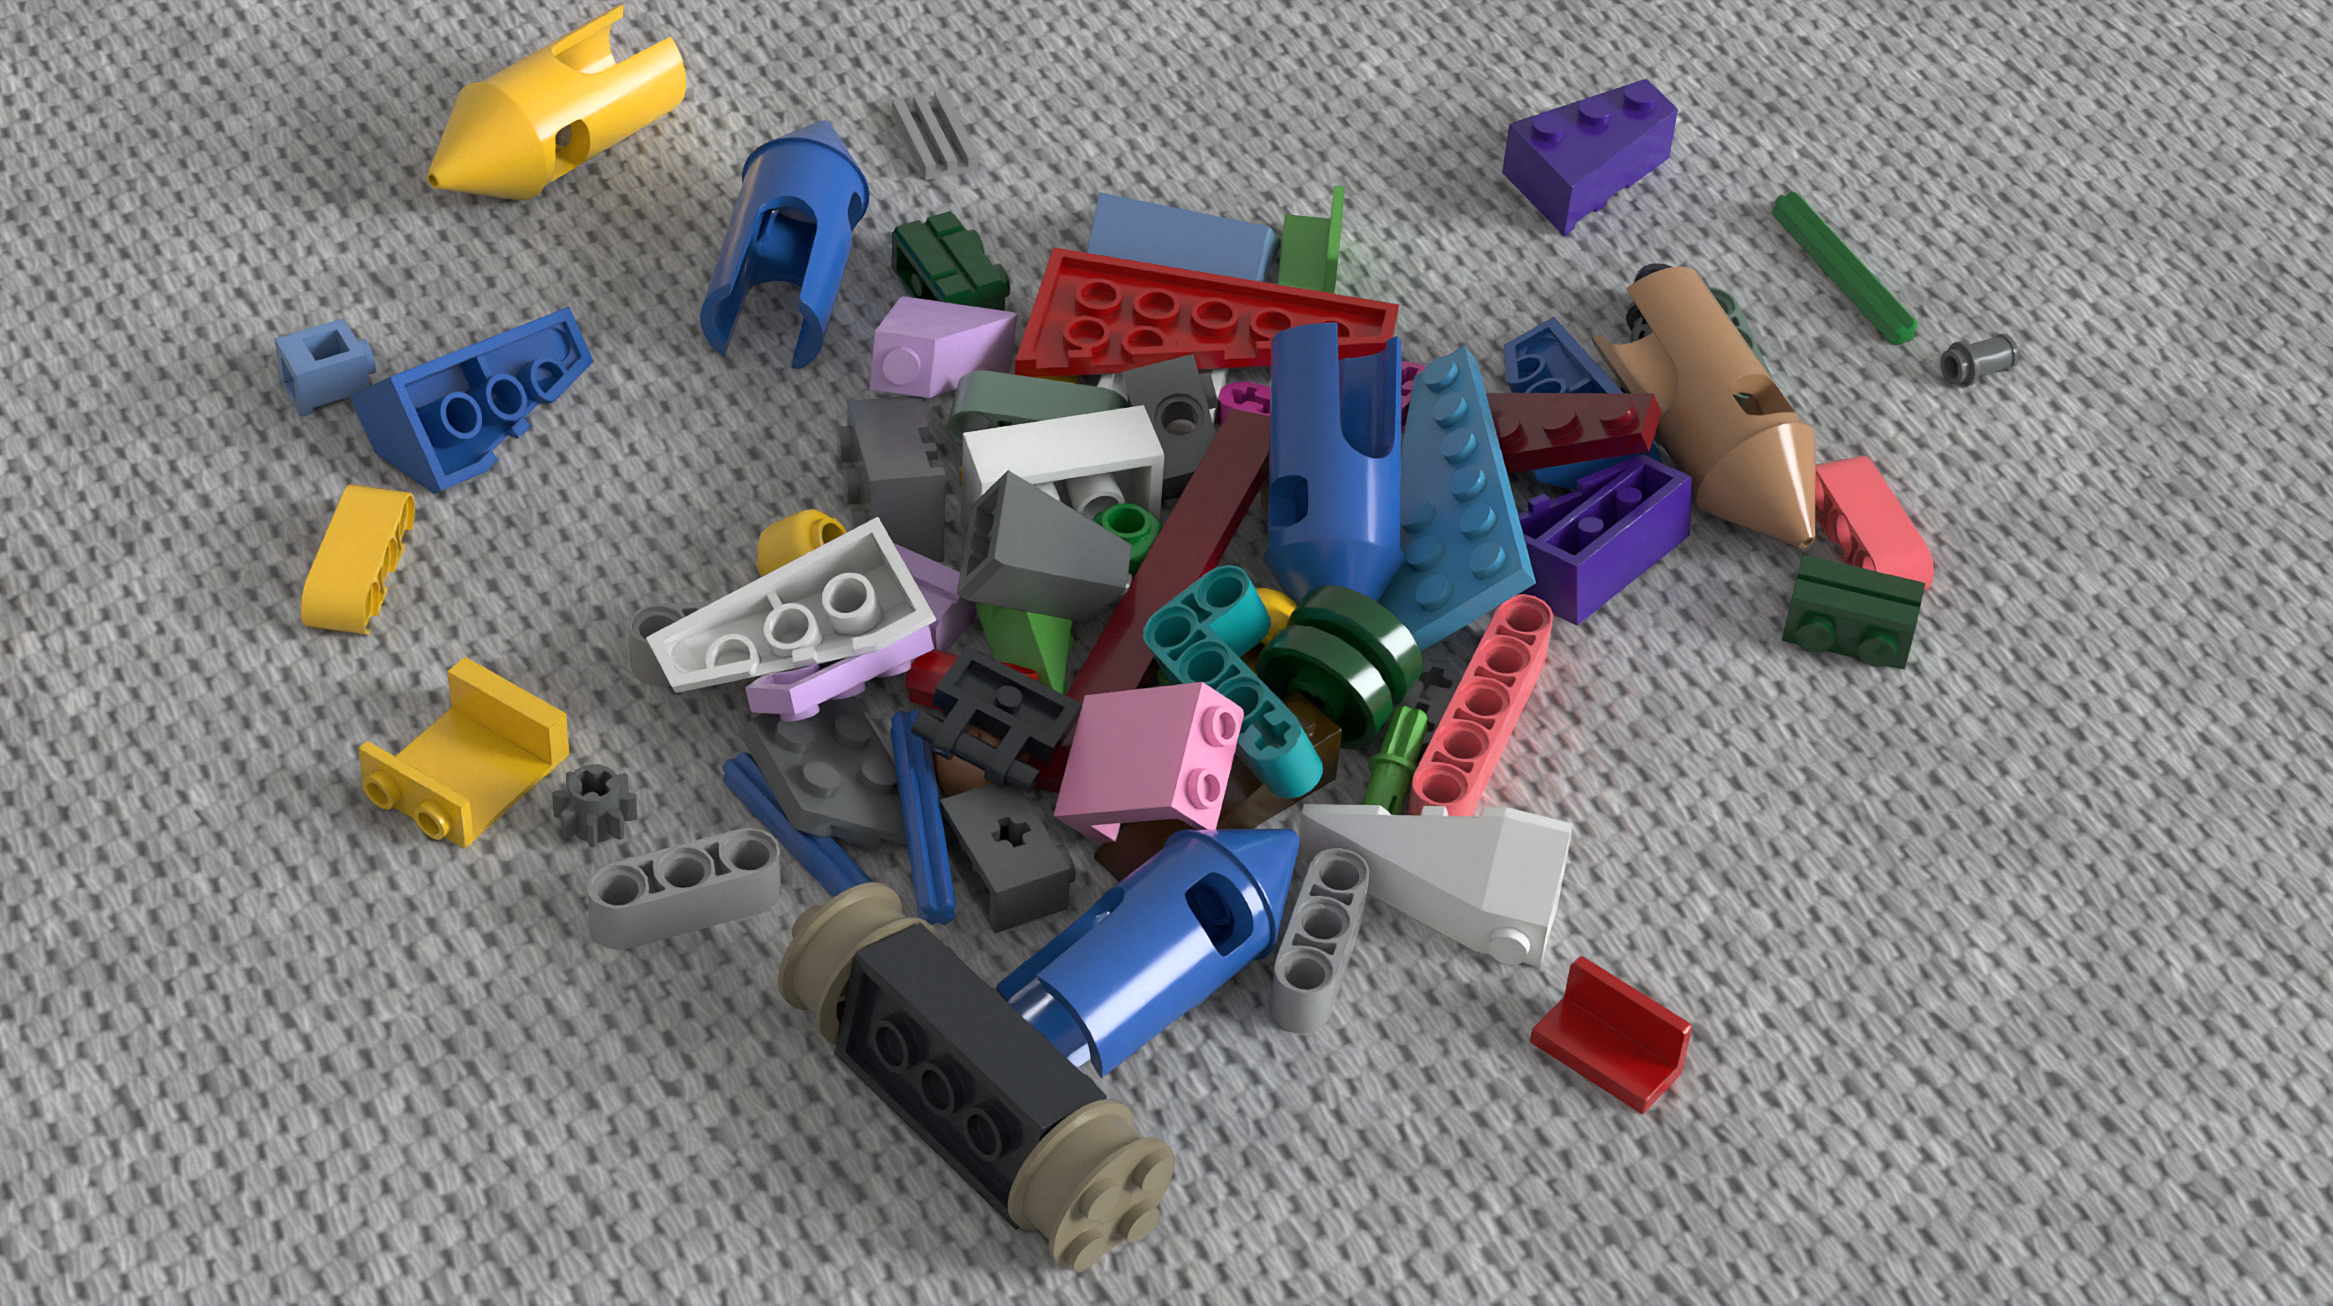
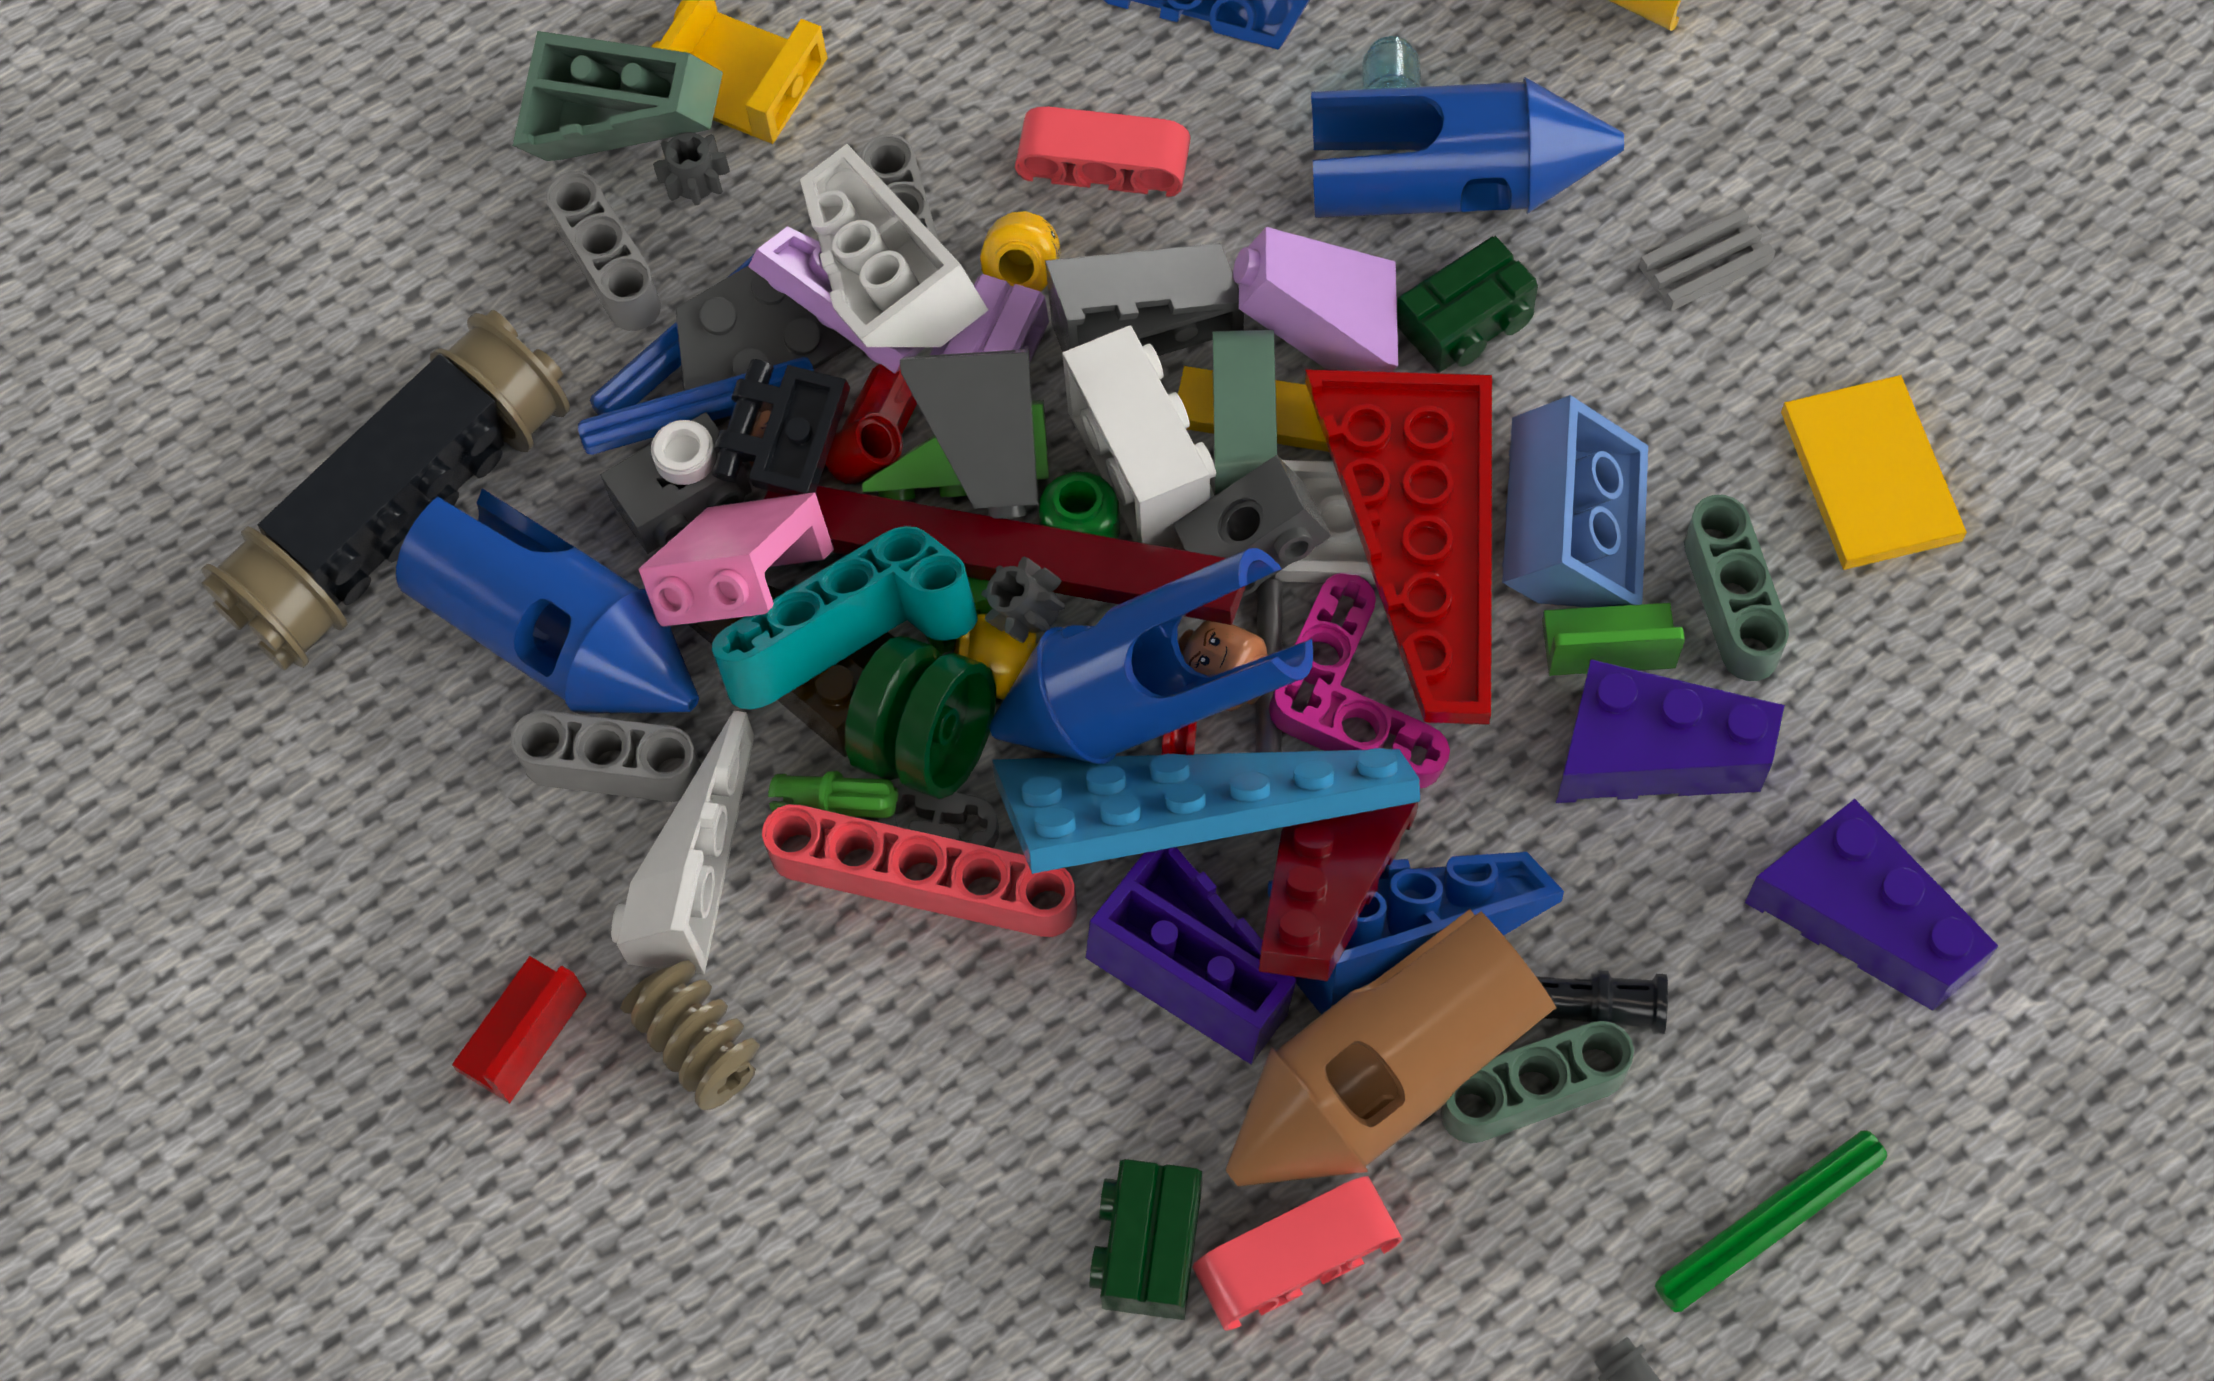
camera: 90 degrees right, 20 degrees up
(504, 827) = (610, 96): none -> sand green wedge
(673, 275) = (1391, 64): none -> clear light blue brick
(684, 488) = (1103, 149): none -> coral beam
(993, 813) = (683, 452): none -> white tile
(1177, 86) = (1873, 472): none -> yellow tile
(1245, 544) = (1022, 599): none -> dark grey gear
(1280, 170) = (1742, 563): none -> sand green beam
(1418, 236) = (1665, 737): none -> dark purple wedge
(1634, 895) = (690, 1034): none -> dark tan piece

